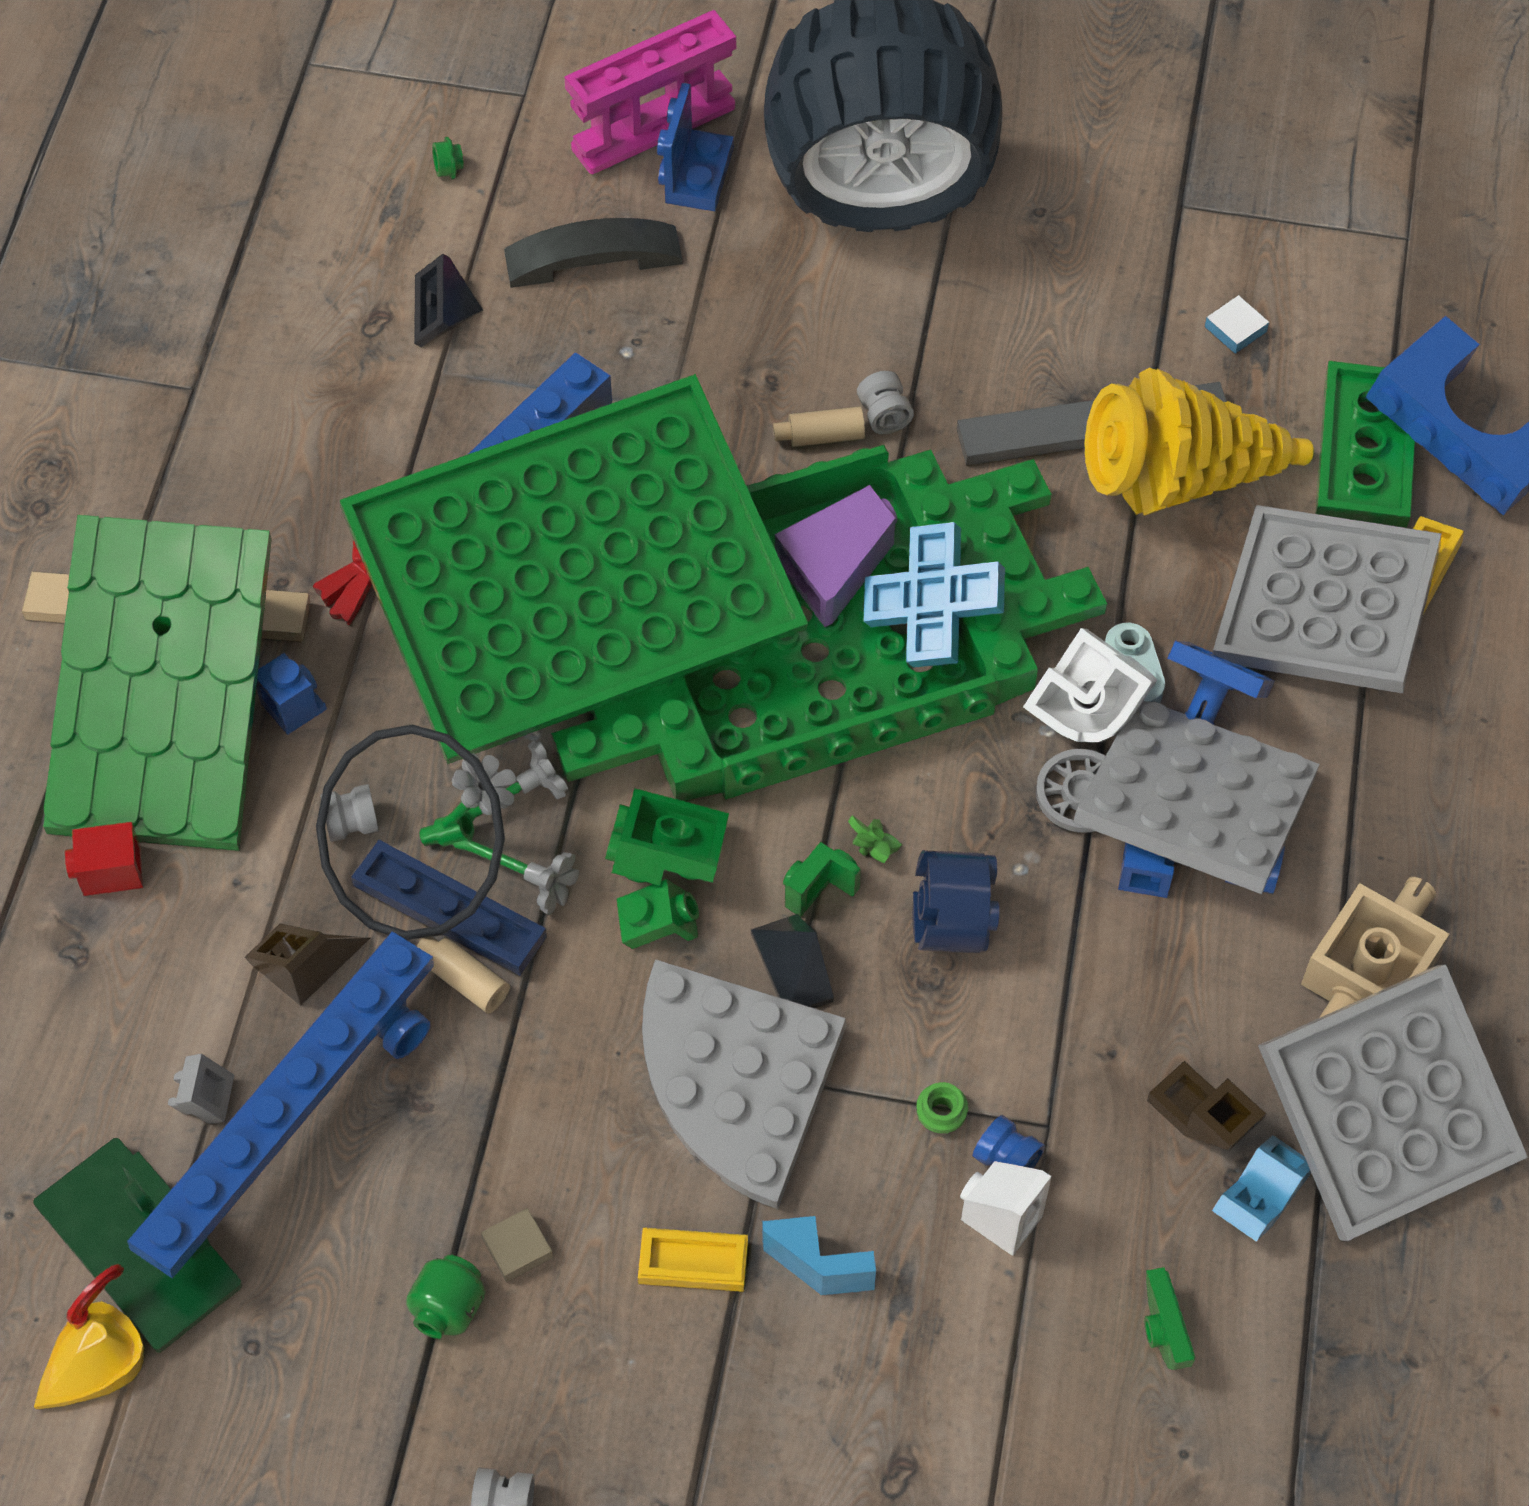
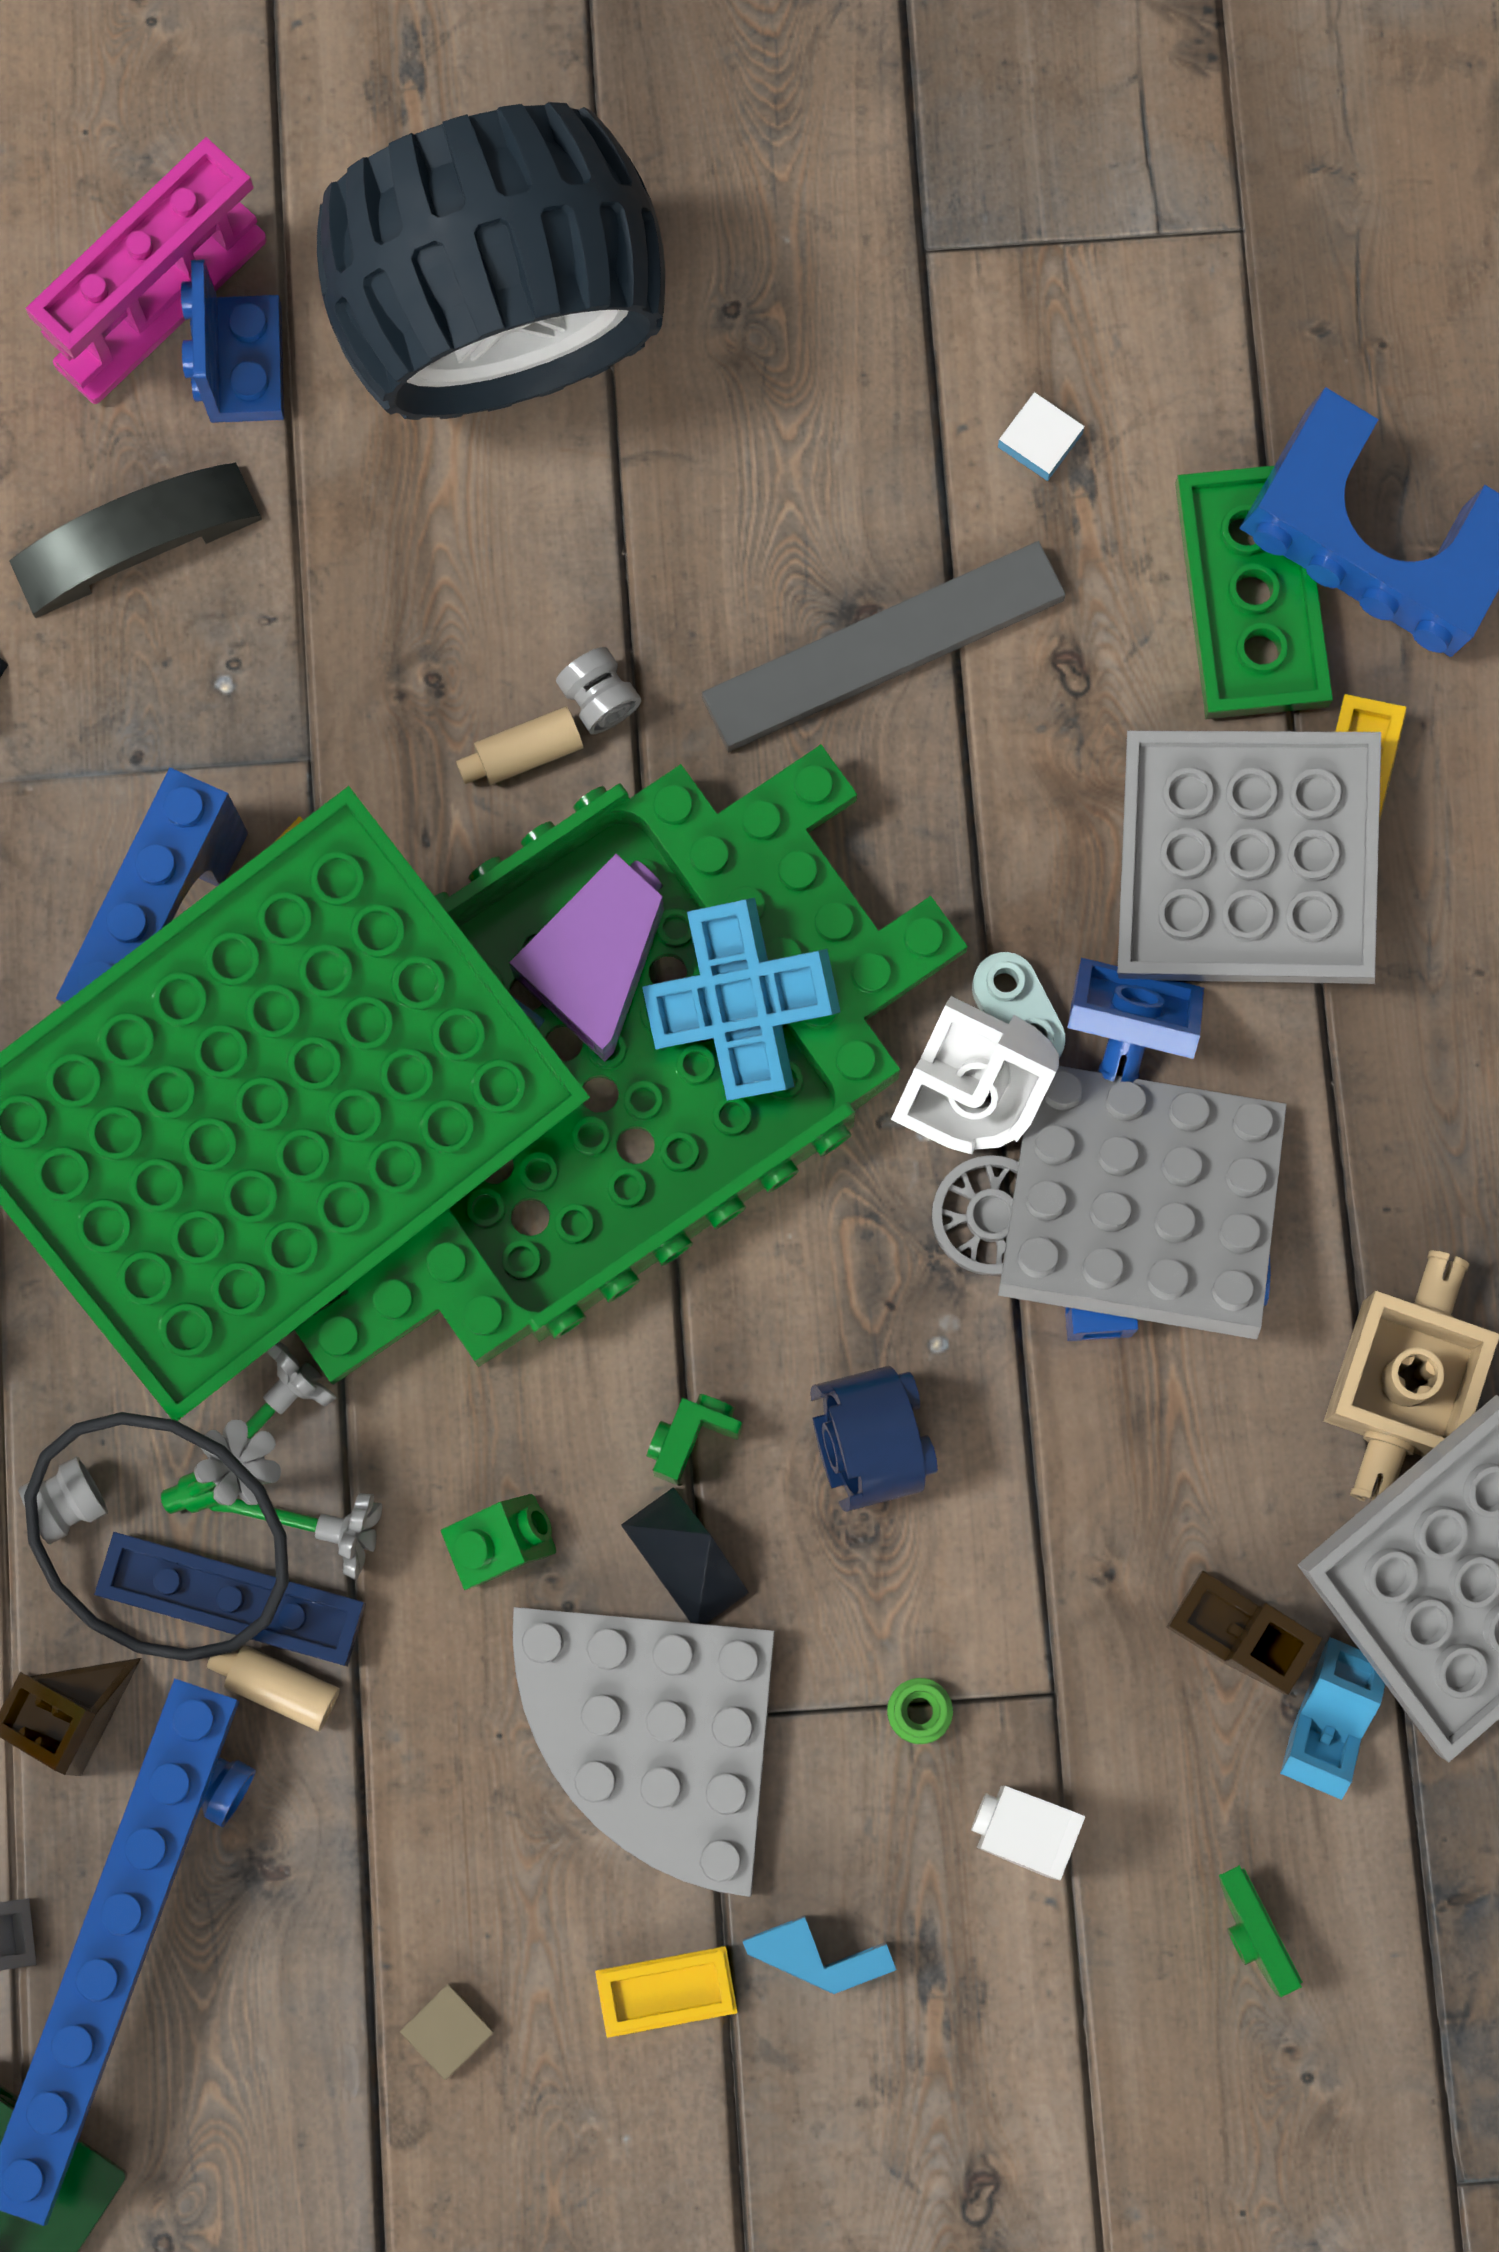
camera: 15 degrees left, 20 degrees up
(445, 1296) = (381, 2129): green head -> none
(665, 835) = (485, 1442): green plate -> none
(873, 839) = (745, 1359): bright green plant -> none
(1006, 1145) = (1016, 1753): blue wheel -> none
(1179, 443) = (1009, 678): yellow plant -> none

